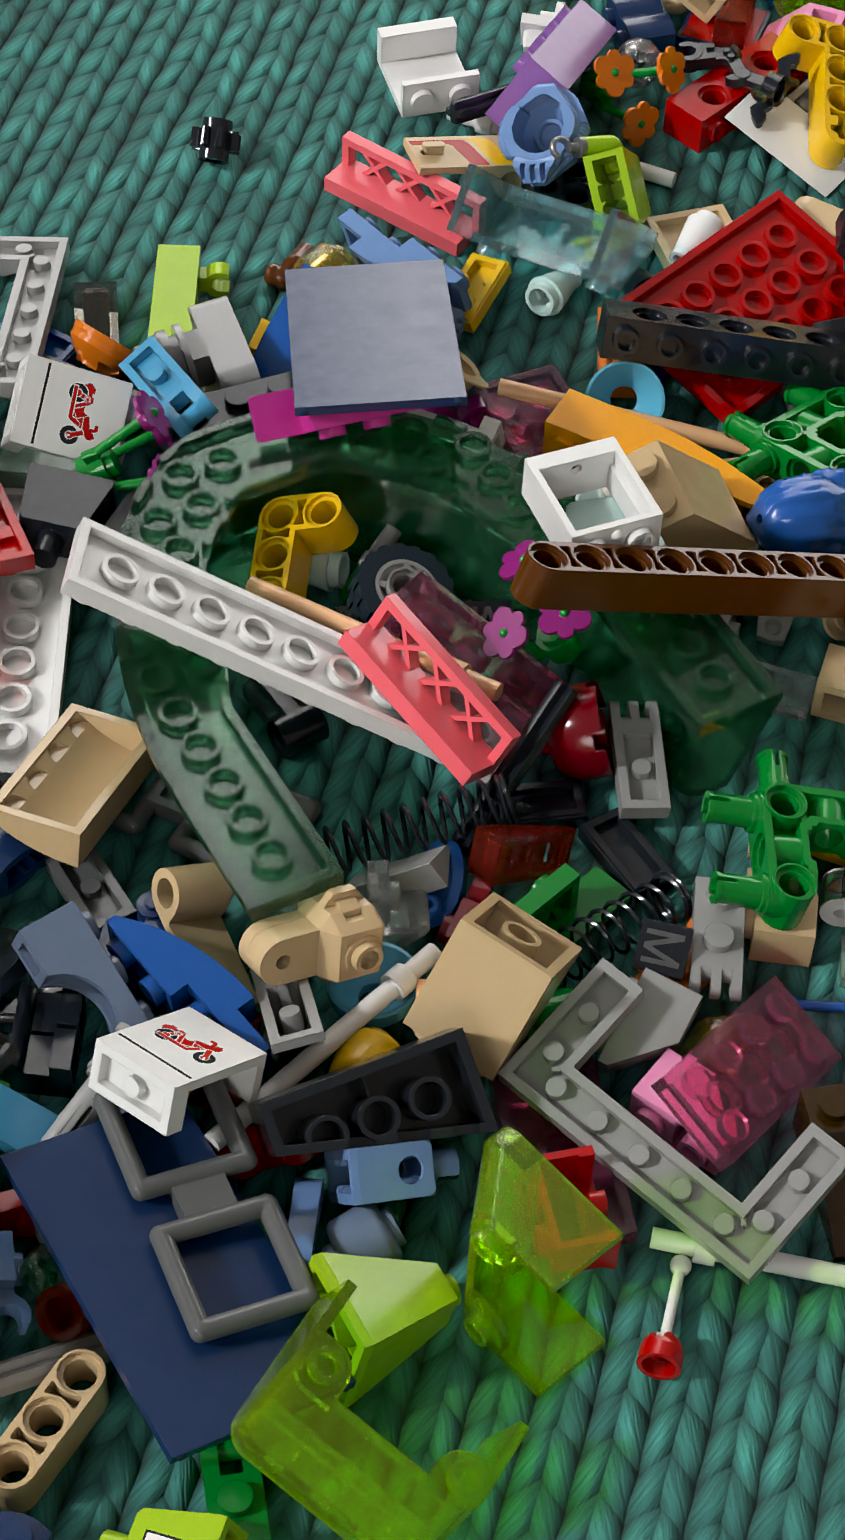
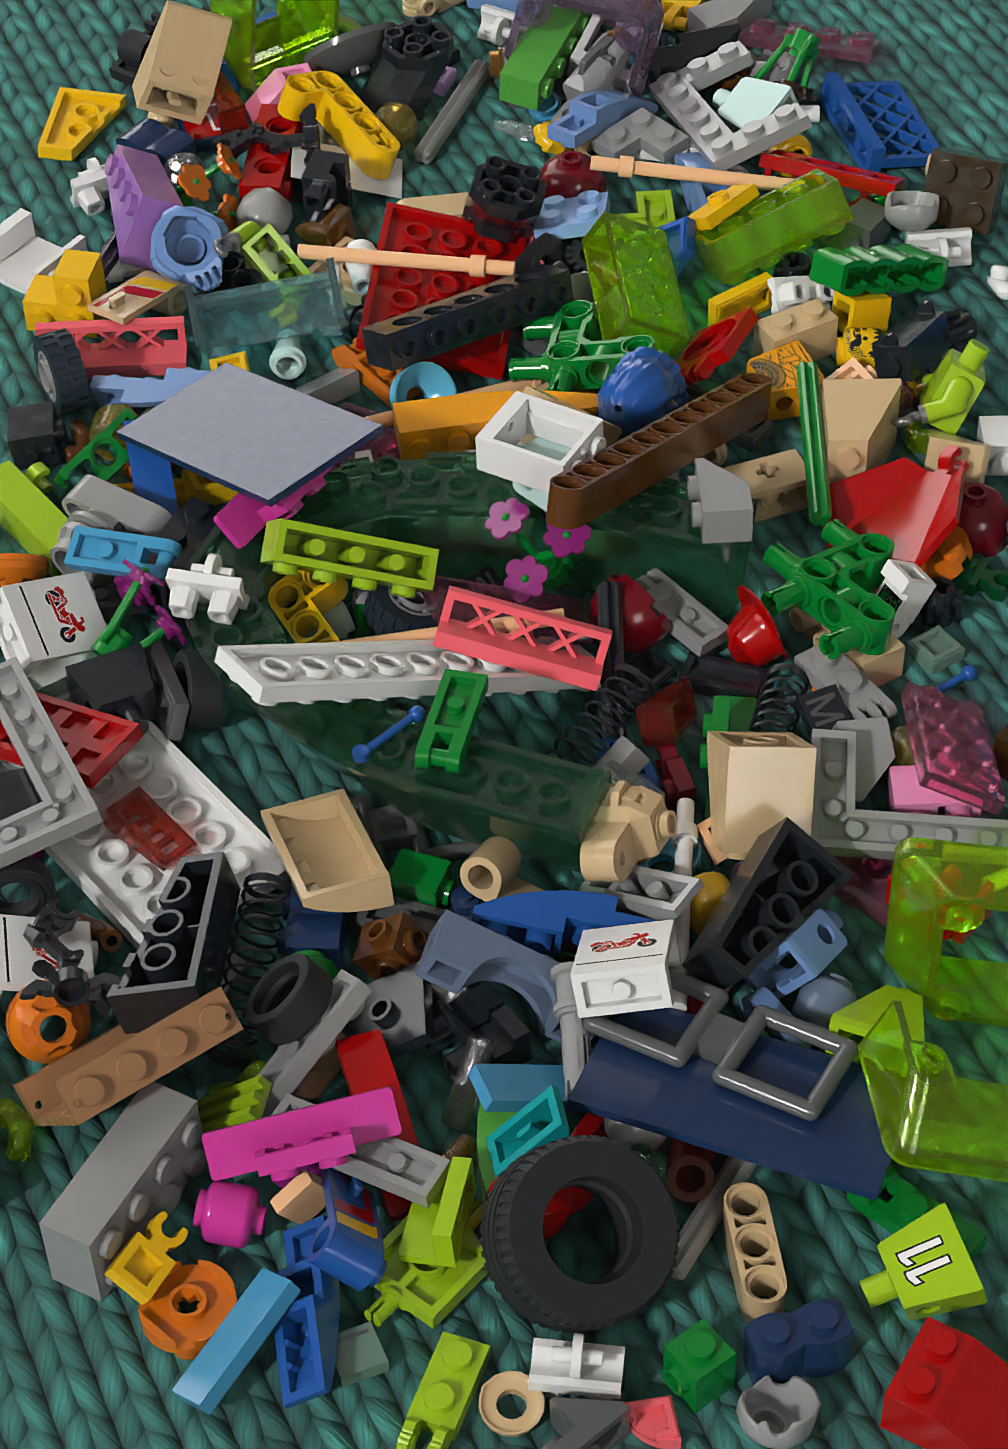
camera: 35 degrees left, 5 degrees down
(38, 896) = (389, 945): none -> reddish brown brick
(135, 856) = (422, 878): none -> green brick
(146, 701) = (361, 752): none -> blue hinge
(180, 458) = (207, 585): none -> white hips
(247, 723) = (451, 720): none -> green plate
(254, 236) = (35, 434): none -> black head
(263, 281) = (87, 459): none -> green piece
(325, 189) = (61, 371): none -> black wheel
(341, 509) = (350, 556): none -> lime brick
(409, 110) = (67, 292): none -> yellow brick
(548, 344) = (333, 385): none -> light grey slope
(670, 140) = (265, 207): none -> light grey hair
(679, 832) = (753, 632): none -> red piece
(715, 189) = (329, 230): none -> clear orange plate
(725, 675) = (721, 505): none -> light grey slope
(739, 150) = (326, 184): none -> black hips
(789, 297) = (475, 265): none -> light nougat bar

